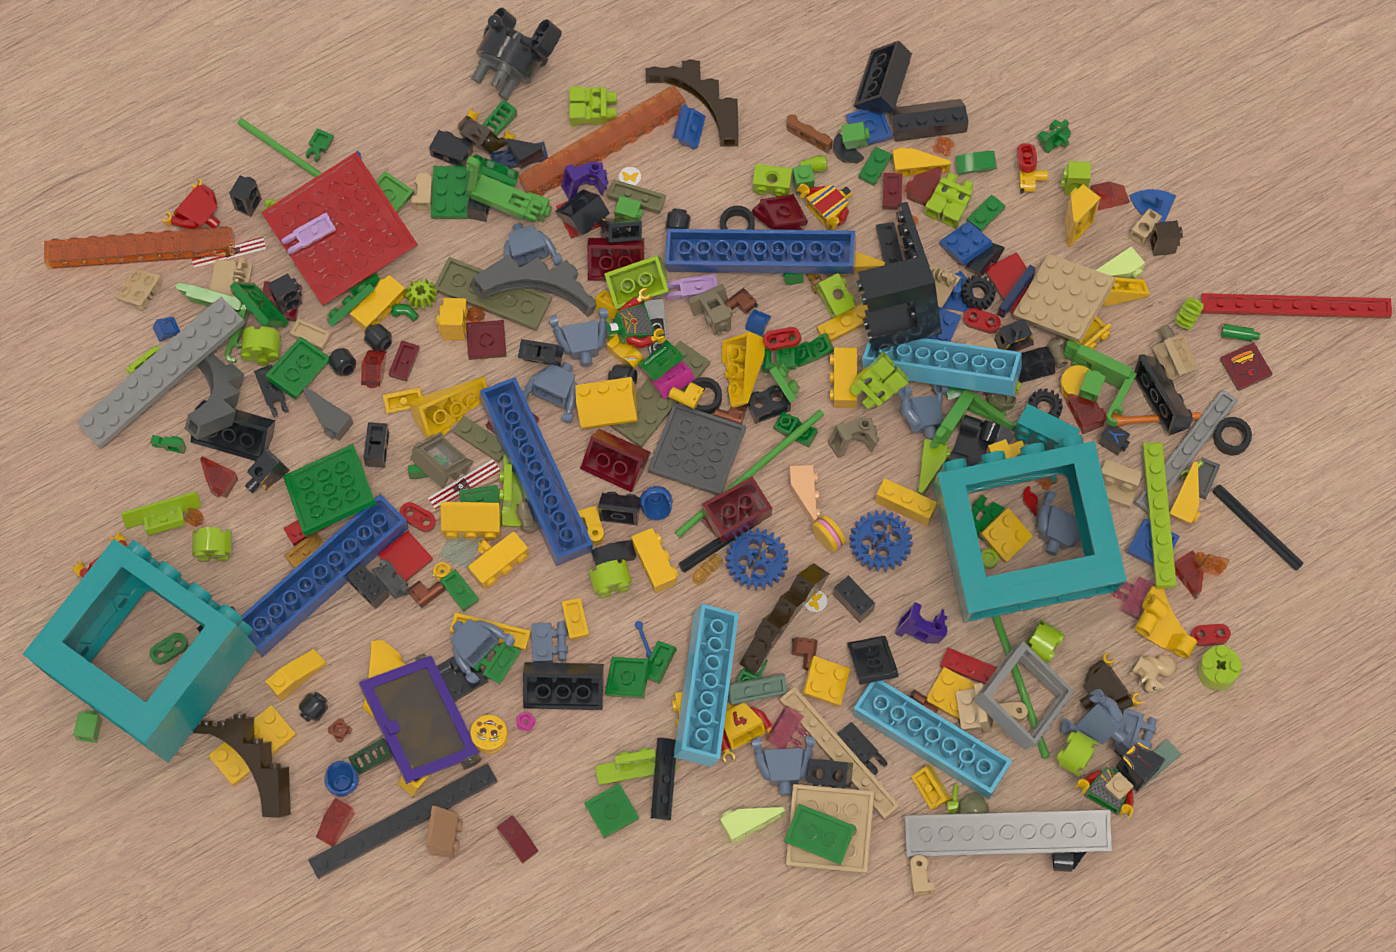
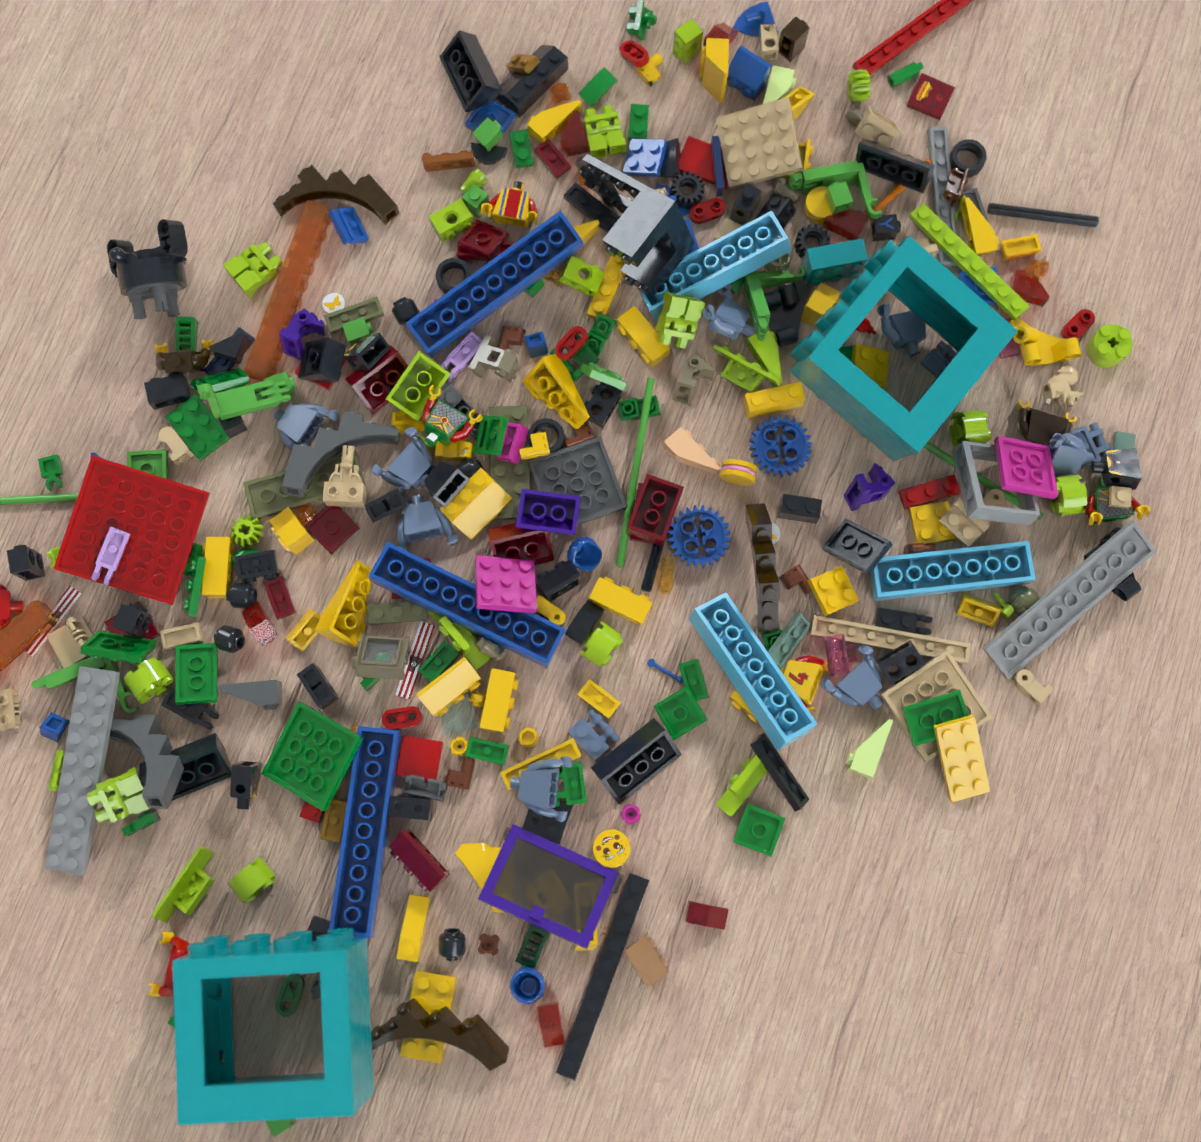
camera: 40 degrees left, 10 degrees up
(166, 410) = (113, 799): none -> lime hips
(194, 517) = (216, 867): clear orange plate -> none
(218, 478) = (208, 819): clear red slope -> none
(341, 626) = (418, 860): none -> dark red slope
(407, 324) = (257, 565): none -> black bracket
(498, 605) = (528, 737): none -> yellow plate
(521, 313) = (345, 486): none -> tan brick
(576, 476) = (505, 584): none -> dark pink plate
(595, 368) = (445, 482): none -> black torso
(654, 448) = (548, 512): none -> dark purple slope
(813, 881) = (961, 758): none -> yellow plate
(897, 462) = (743, 373): none -> lime bracket
(930, 101) = (522, 63): none -> pearl gold plate
(1057, 701) = (1025, 467): none -> dark pink plate
(1104, 238) = (748, 73): none -> blue slope
(1195, 453) = (955, 185): none -> reddish brown hinge
(1215, 537) = (1020, 247): none -> yellow plate

